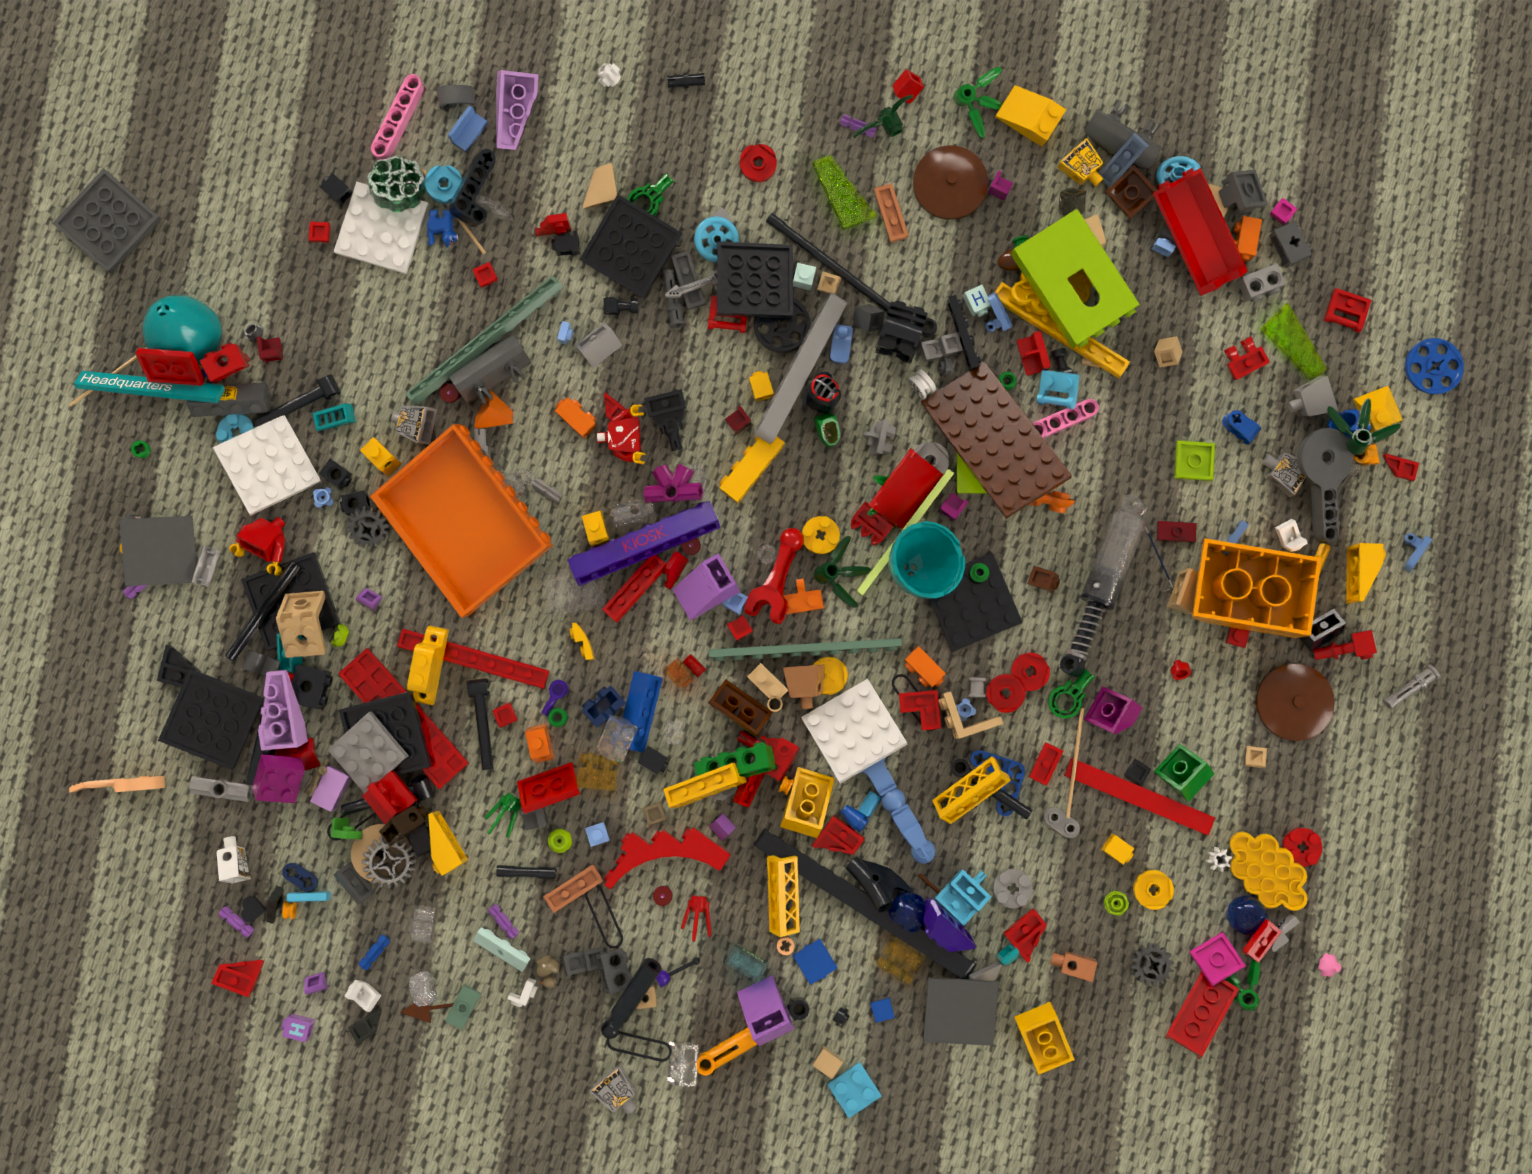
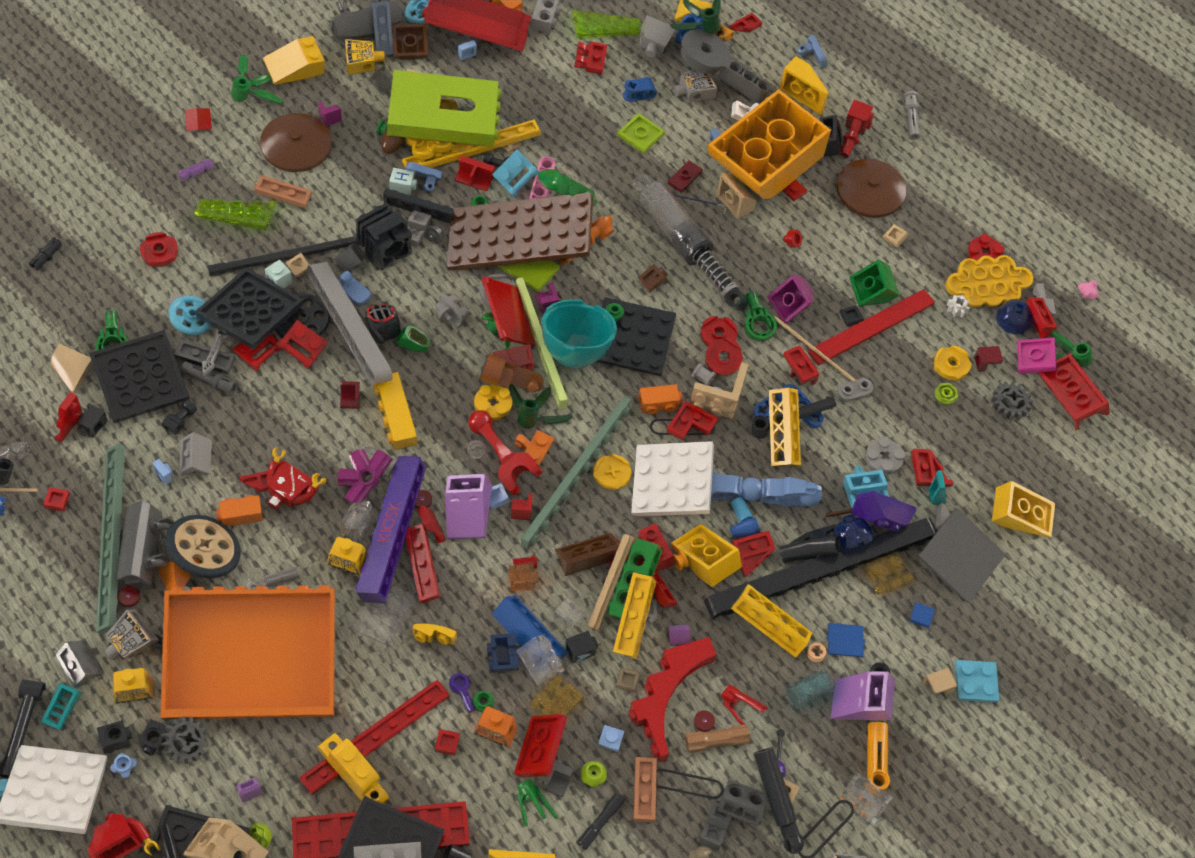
camera: 60 degrees left, 25 degrees down
(374, 402) = (79, 662): none -> flat silver panel
(478, 690) = (407, 748): black piece -> none
(498, 411) = (183, 557): none -> wedge
(643, 905) = (702, 740): none -> medium nougat axle
(667, 411) = (300, 440): black brick -> none
(722, 746) = (610, 582): none -> tan axle
(761, 386) = (337, 362): yellow brick -> none
(762, 346) = (306, 340): none -> red plate
(768, 684) = (587, 516): tan hinge -> none
(805, 683) = (605, 487): medium nougat torso -> none
(841, 1016) = (907, 647): black plate -> none
(847, 524) = (500, 372): none -> dark orange piece
(888, 119) = (212, 145): dark green plant -> none
(922, 384) = (434, 254): white wheel -> none
(1071, 445) = (562, 184): none -> green torso
(1085, 965) = (987, 439): nougat torso -> none
(1118, 849) = (903, 364): yellow brick -> none
(1168, 351) = (546, 96): tan panel -> none
(1181, 918) = (986, 356): none -> dark red panel

